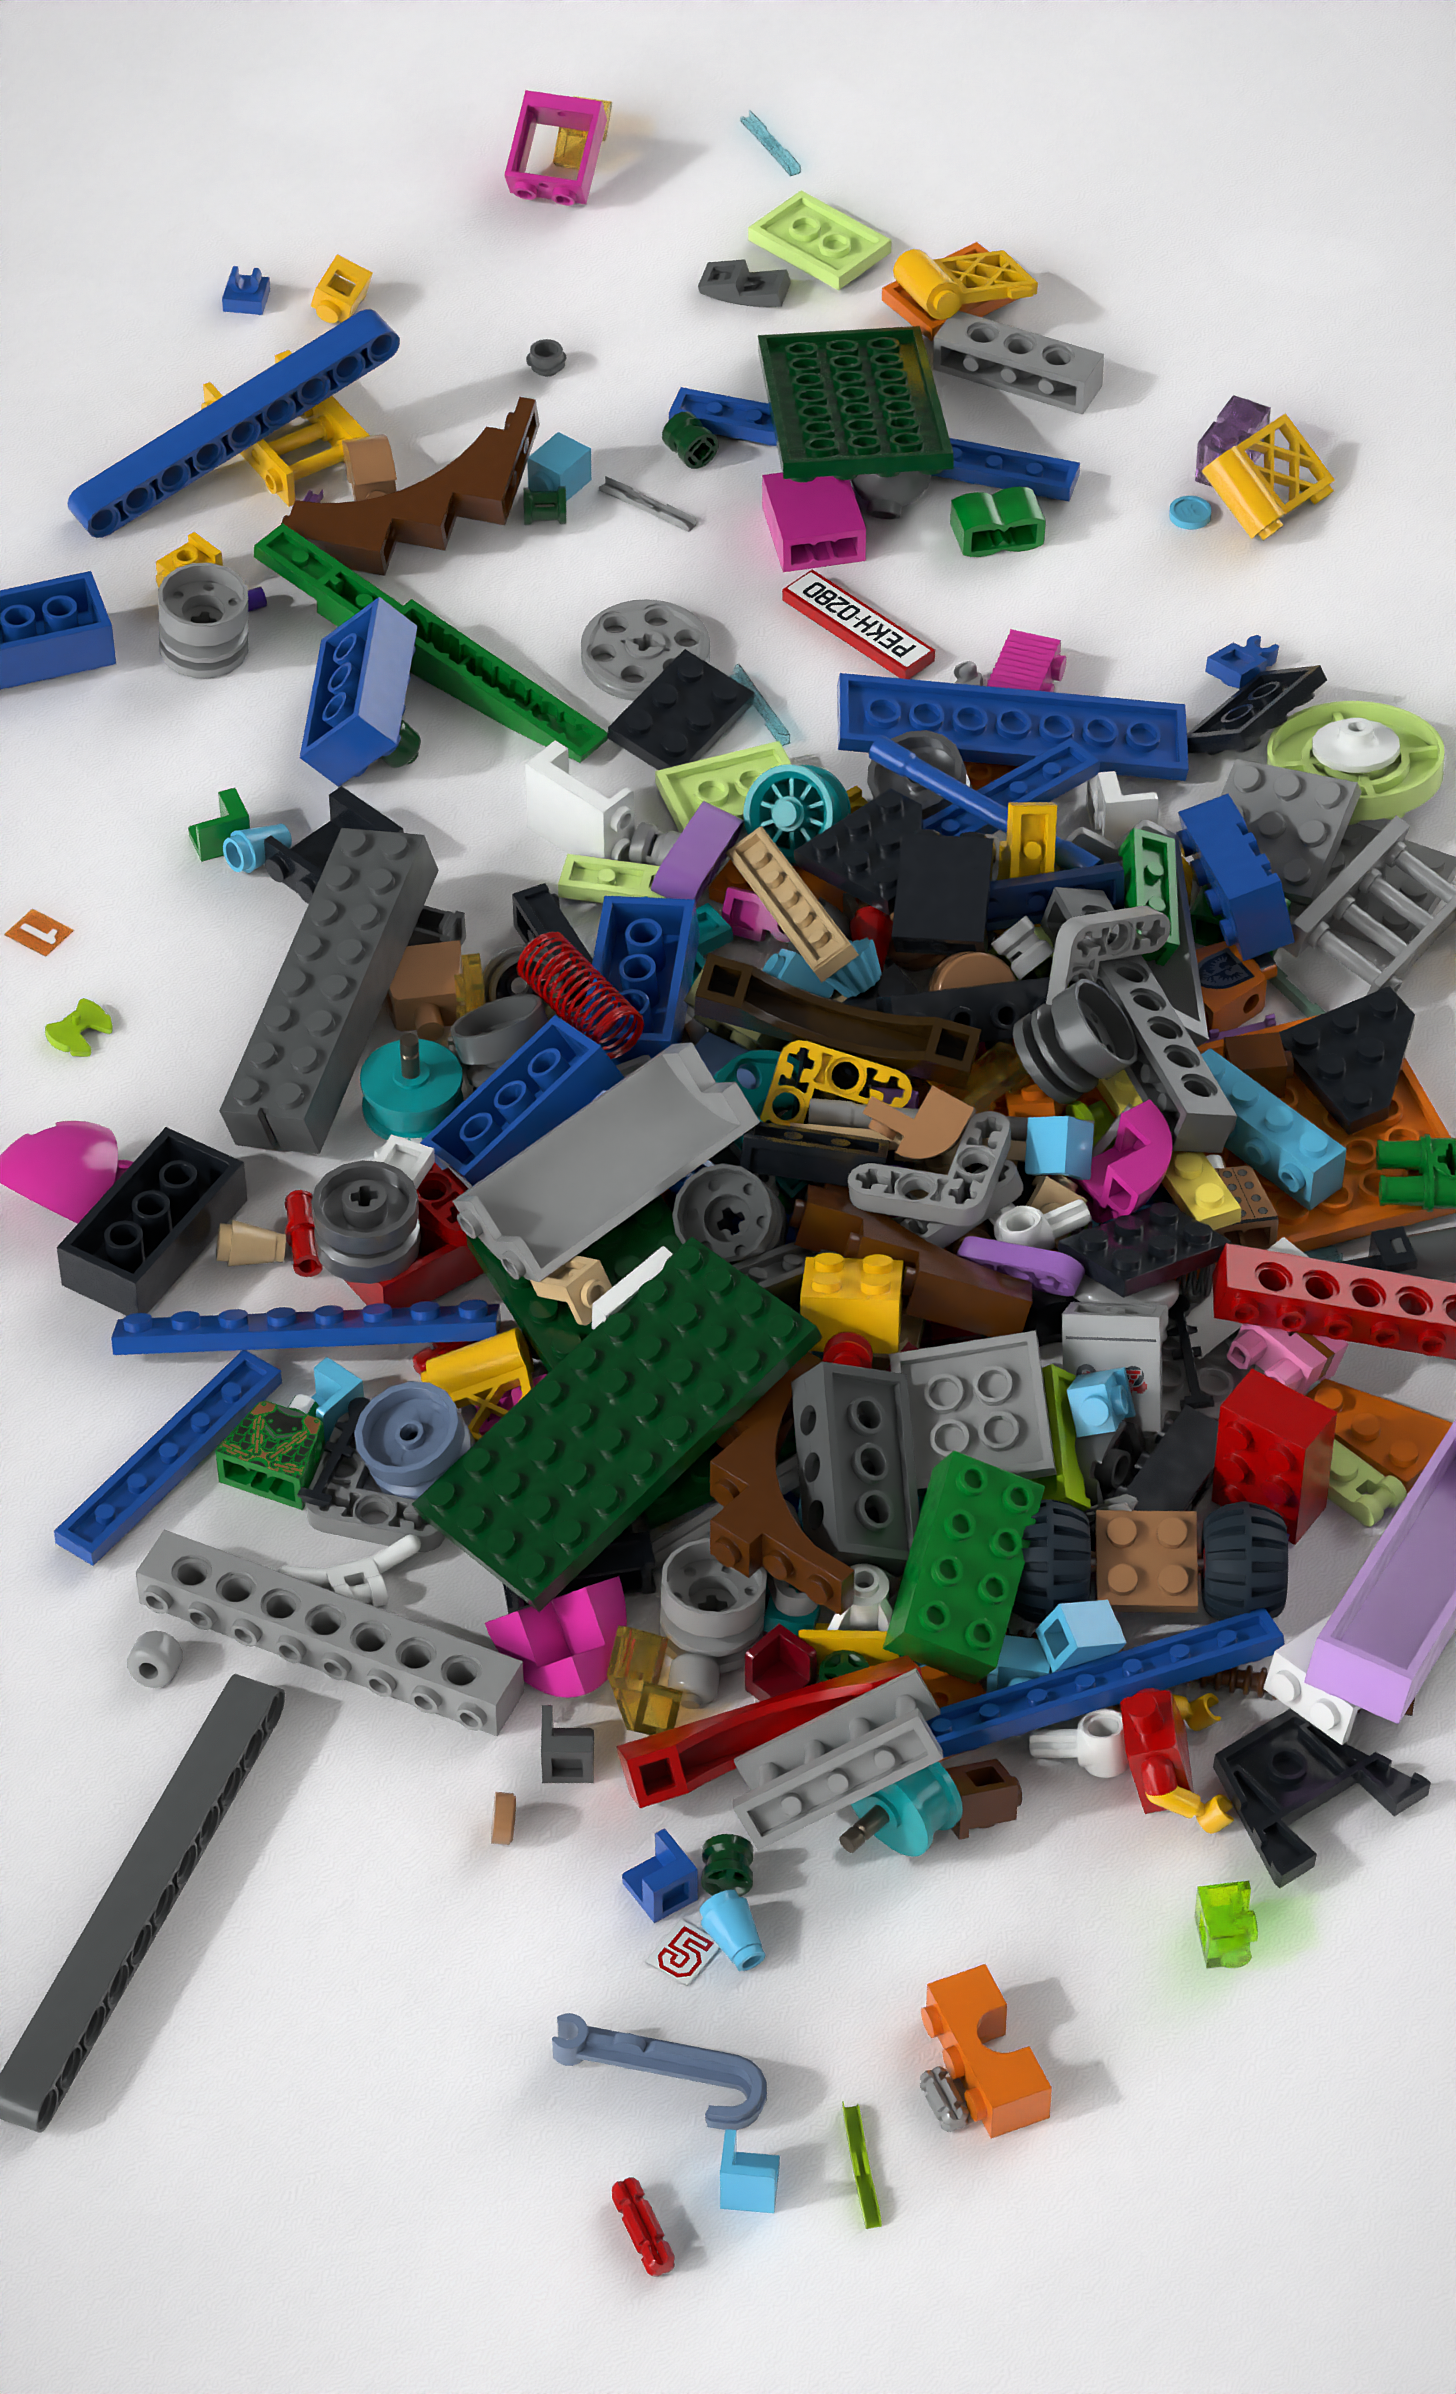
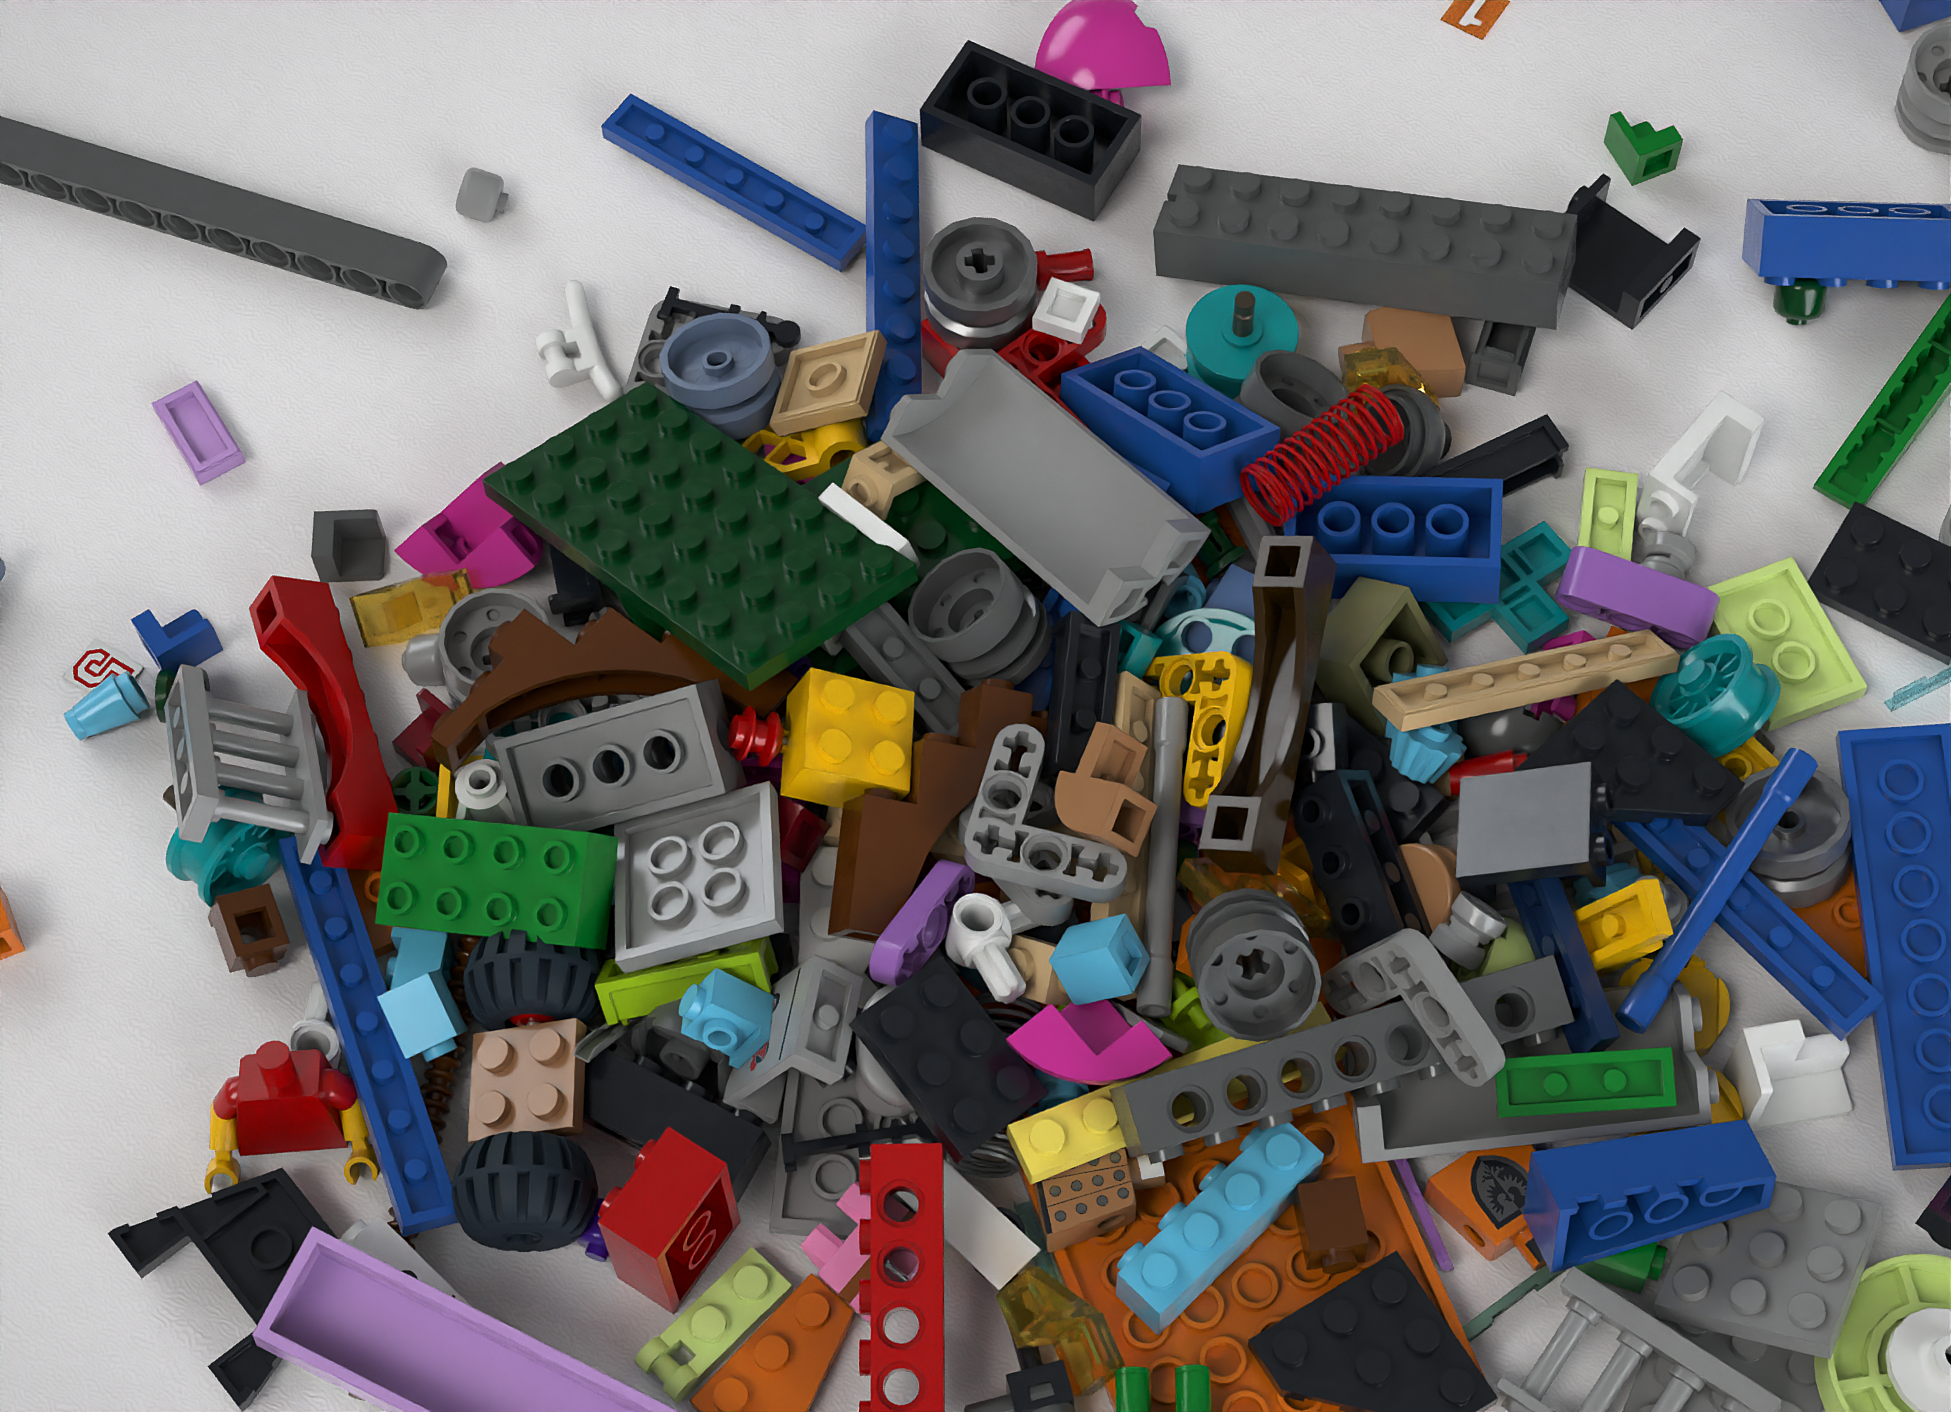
camera: 90 degrees right, 15 degrees up
(66, 1034) = (1348, 60): lime piece -> none
(246, 848) = (1626, 186): medium azure cone -> none
(248, 1244) = (1024, 210): tan cone -> none
(274, 1451) = (737, 266): green torso -> none
(330, 1633) = (428, 478): light grey brick -> none
(334, 1391) = (813, 312): medium azure panel -> none
(414, 1885) = (198, 432): none -> lavender tile
(443, 1350) = (828, 383): none -> tan tile
(503, 1818) = (260, 495): medium nougat tile -> none
(1225, 1924) = (61, 1179): clear neon green brick -> none
(1347, 1228) = (1048, 1313): none -> clear yellow slope

